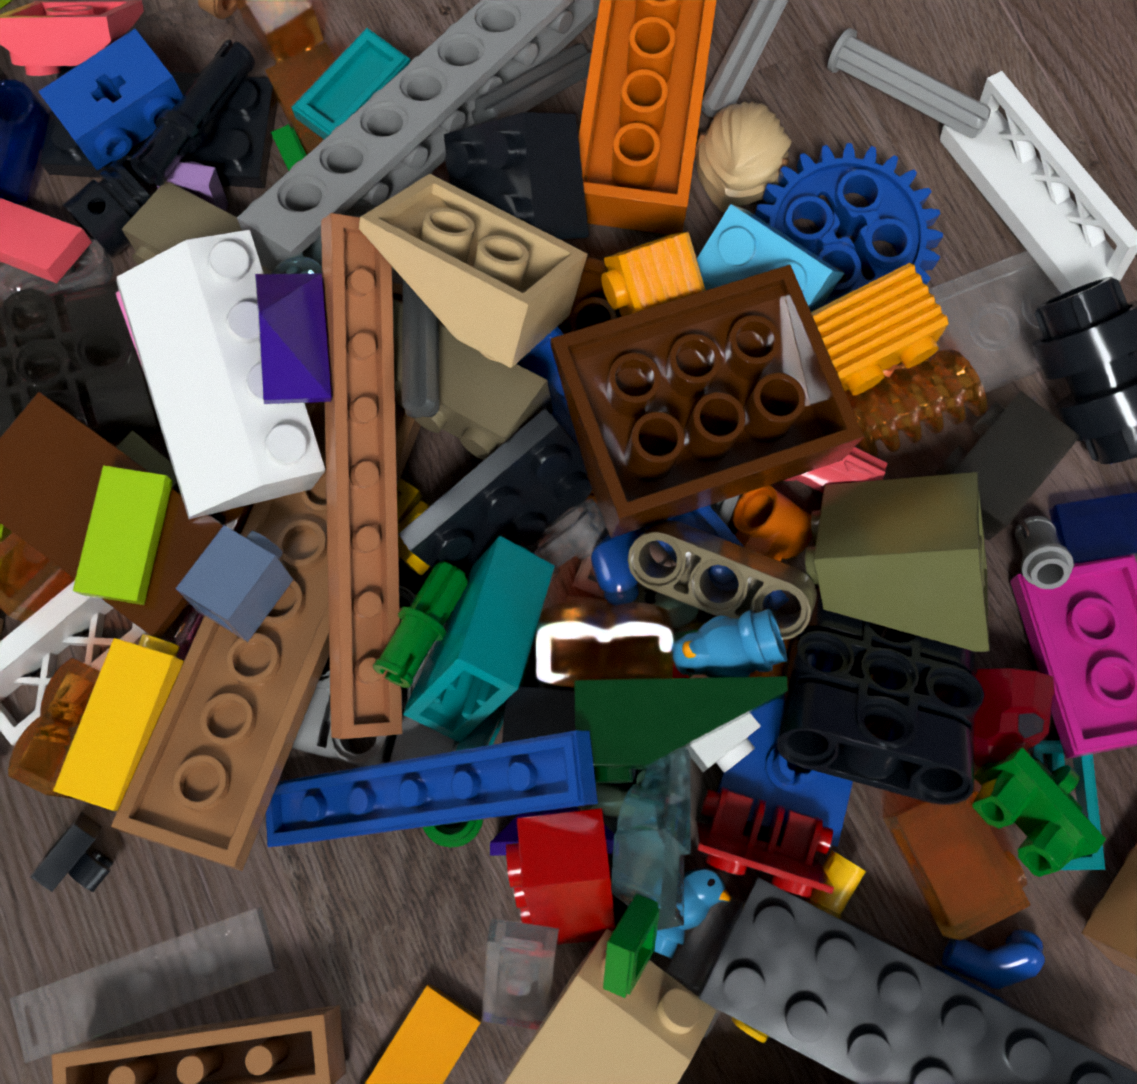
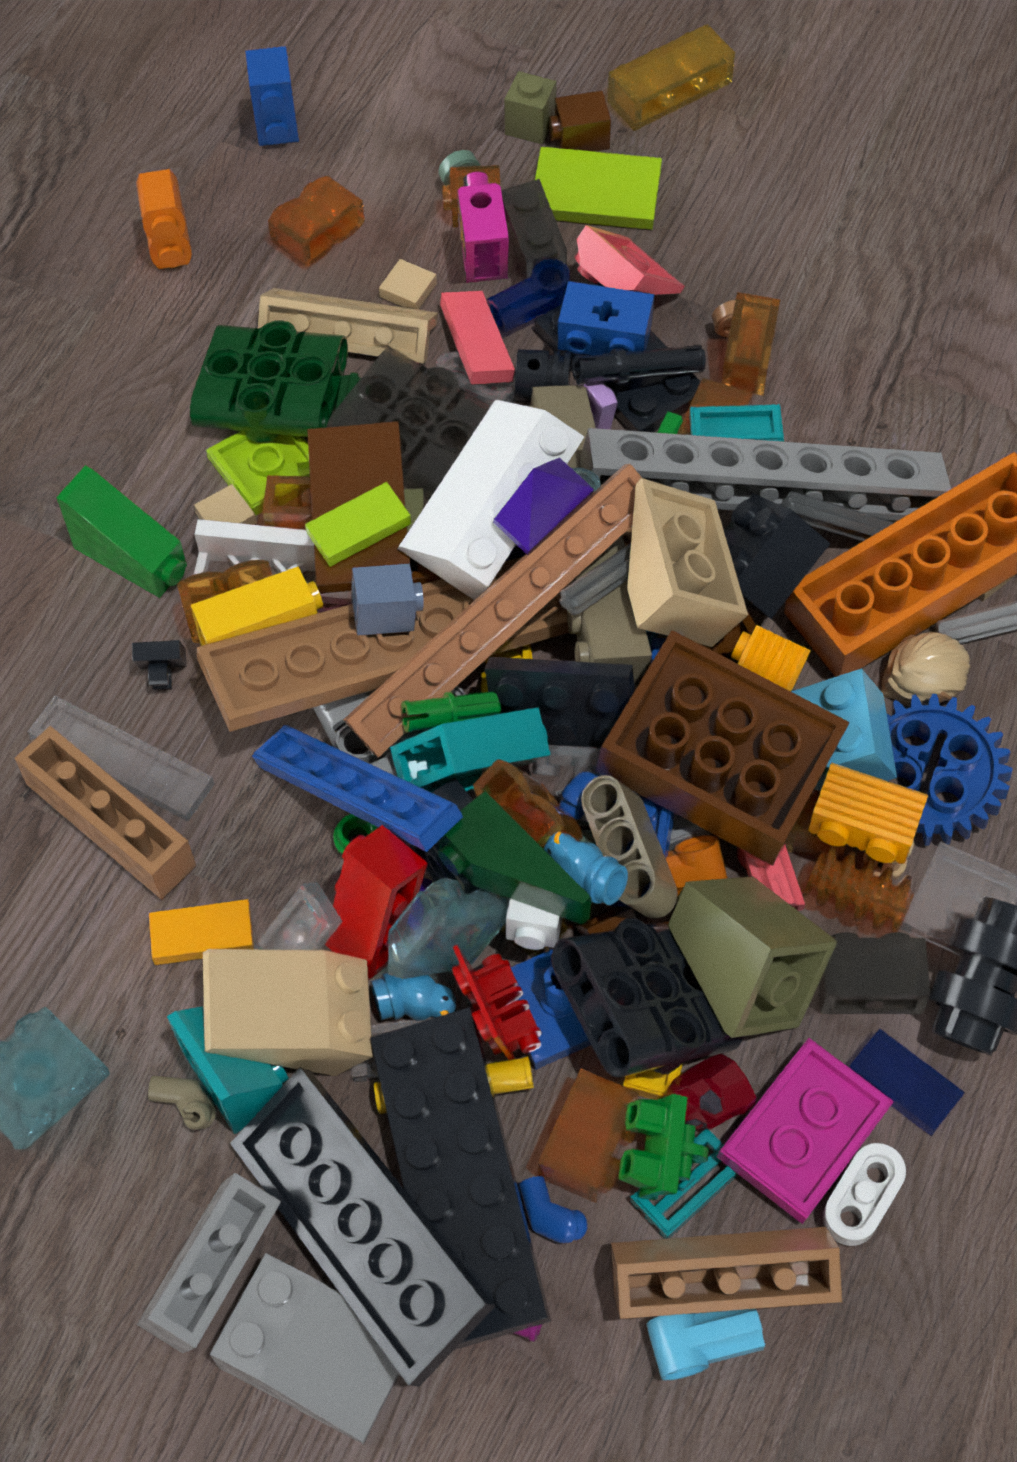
camera: 45 degrees right, 15 degrees down
(631, 946) = (366, 959): green tile -> none
(1044, 559) = (831, 1039): light grey pin -> none

